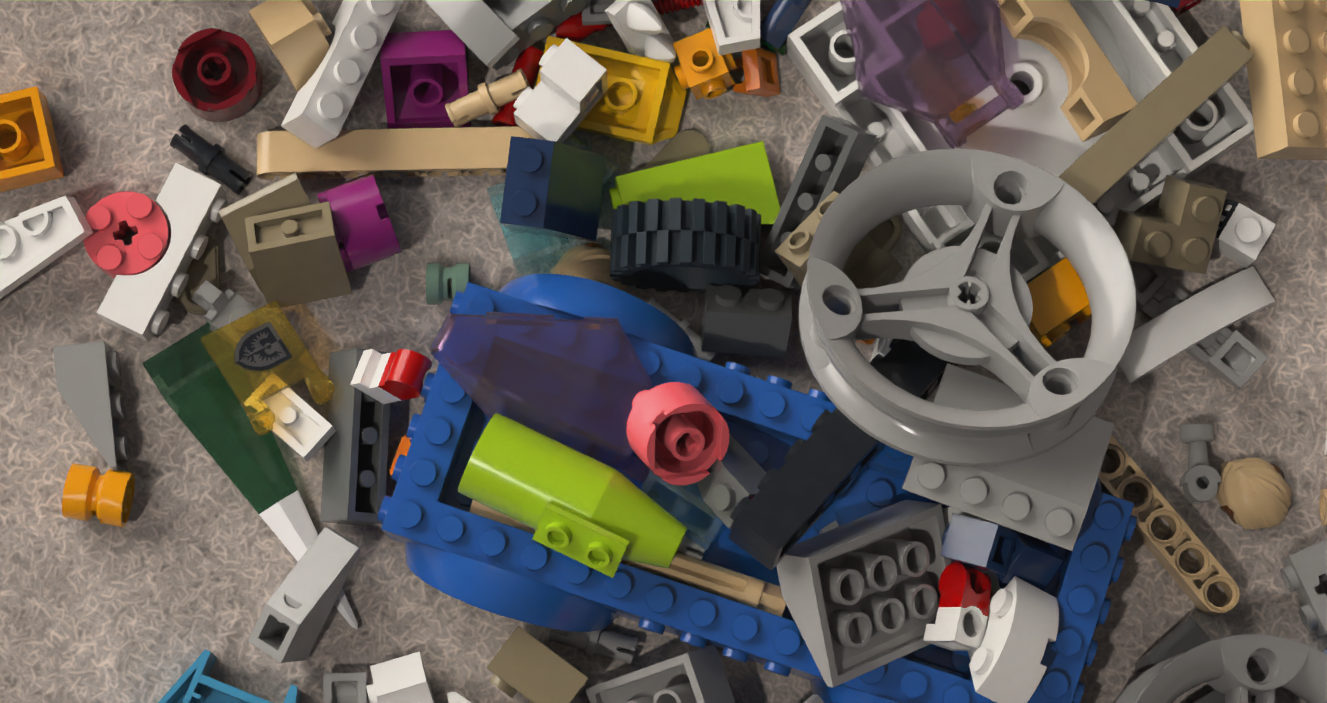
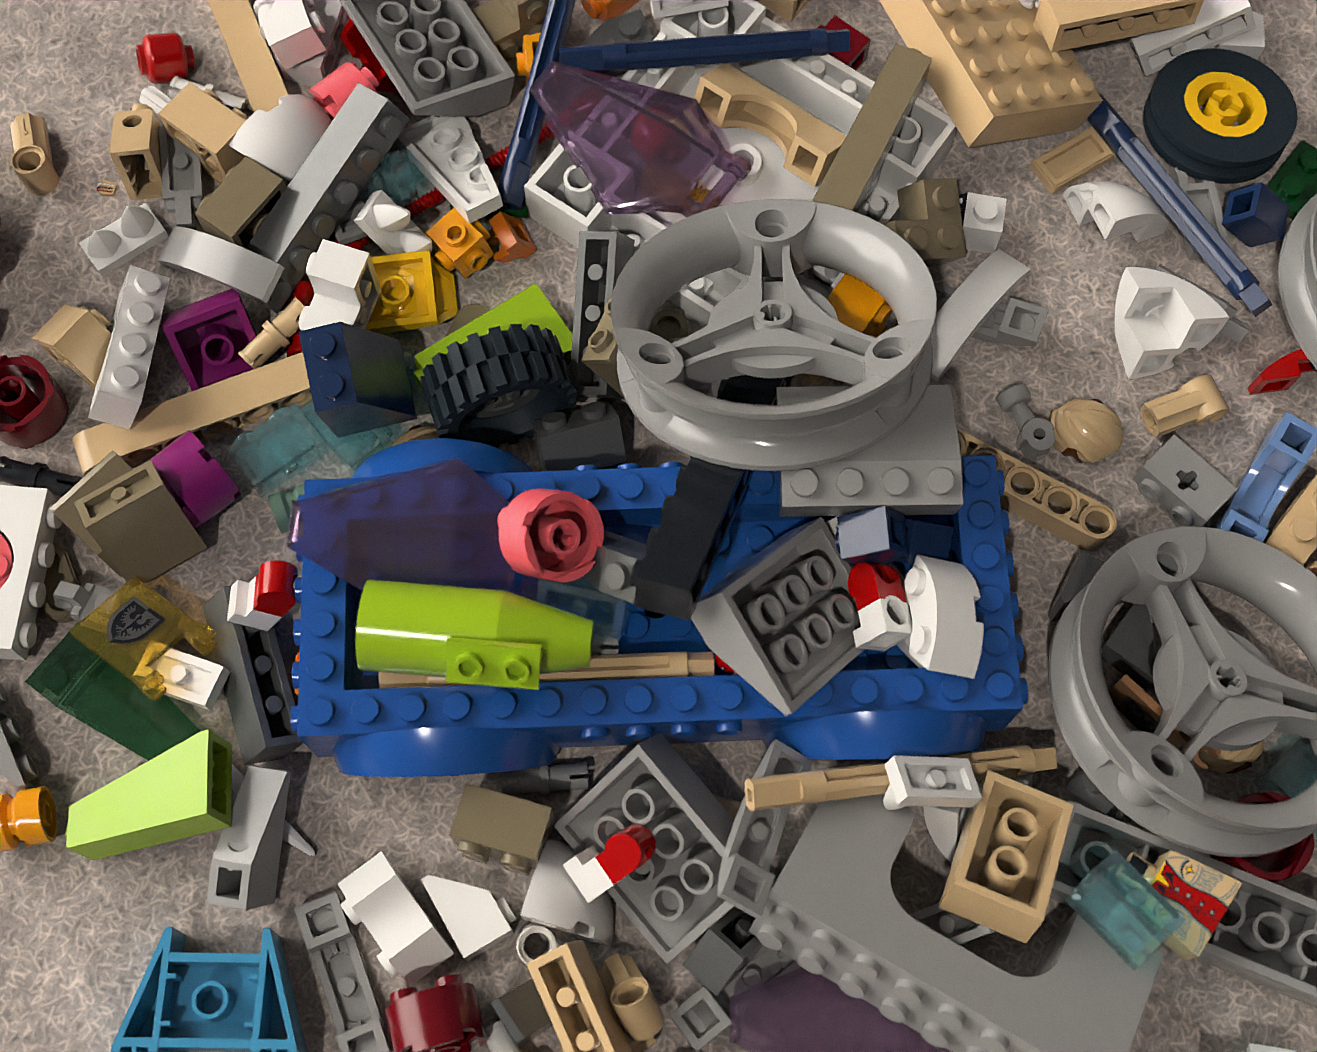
camera: 20 degrees left, 10 degrees down
(234, 530) = (158, 802): none -> slope
(450, 216) = (277, 449): none -> clear light blue brick

